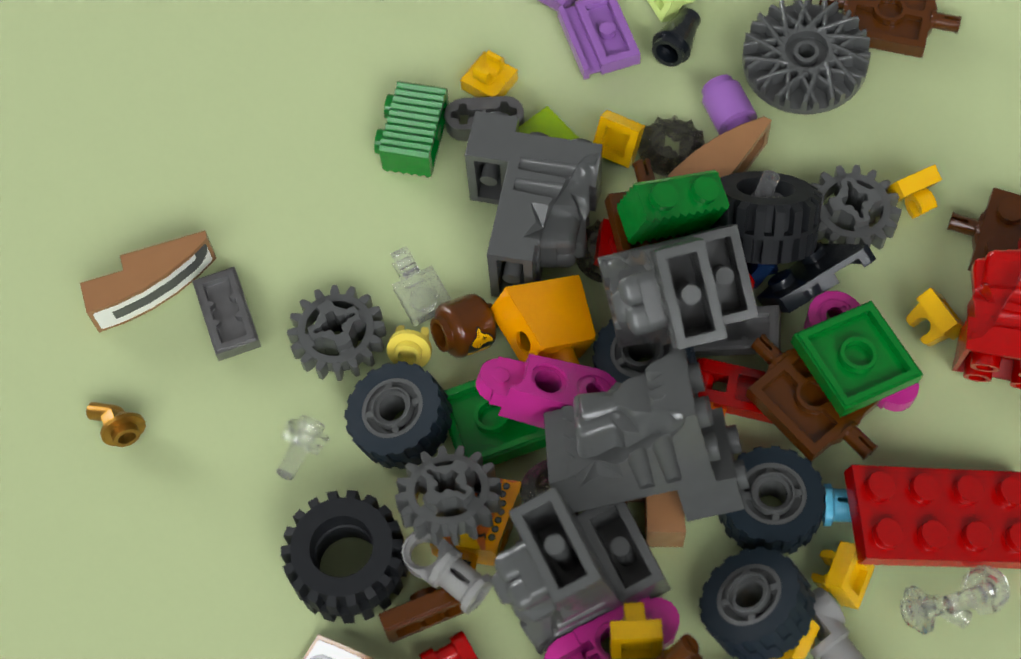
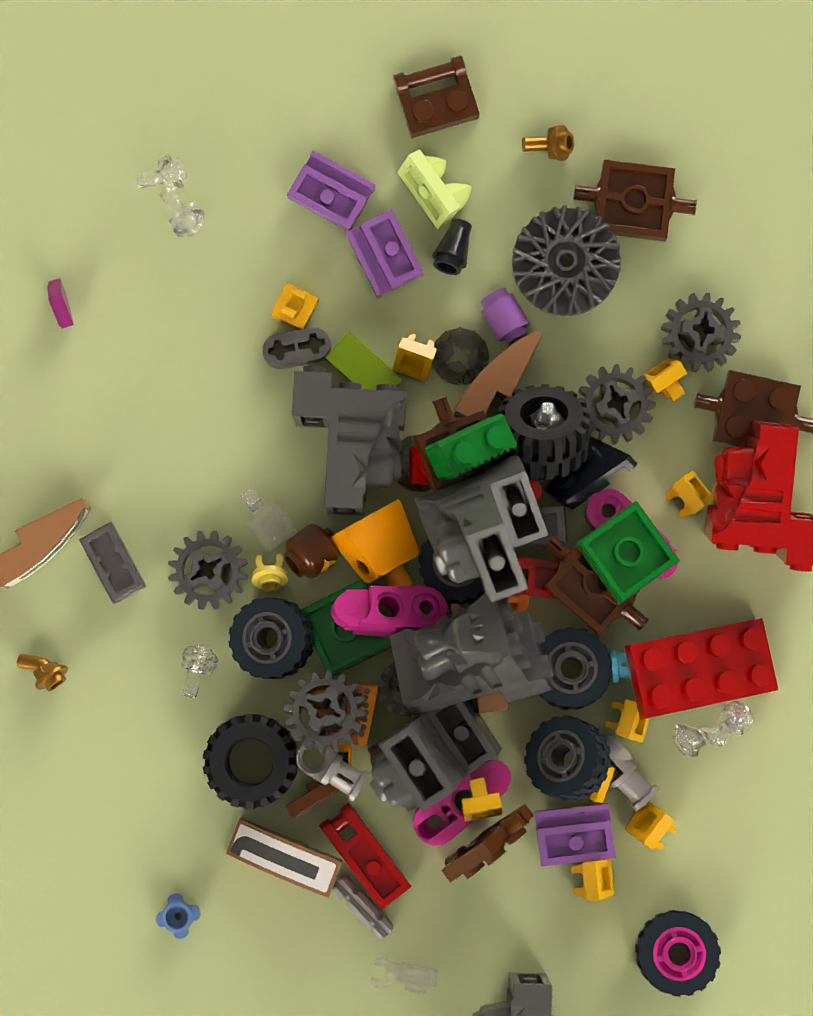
camera: 15 degrees left, 20 degrees up
(229, 48) = (59, 303): none -> magenta tile
(412, 128) = (237, 369): green brick -> none
(981, 146) = (716, 333): none -> dark grey gear

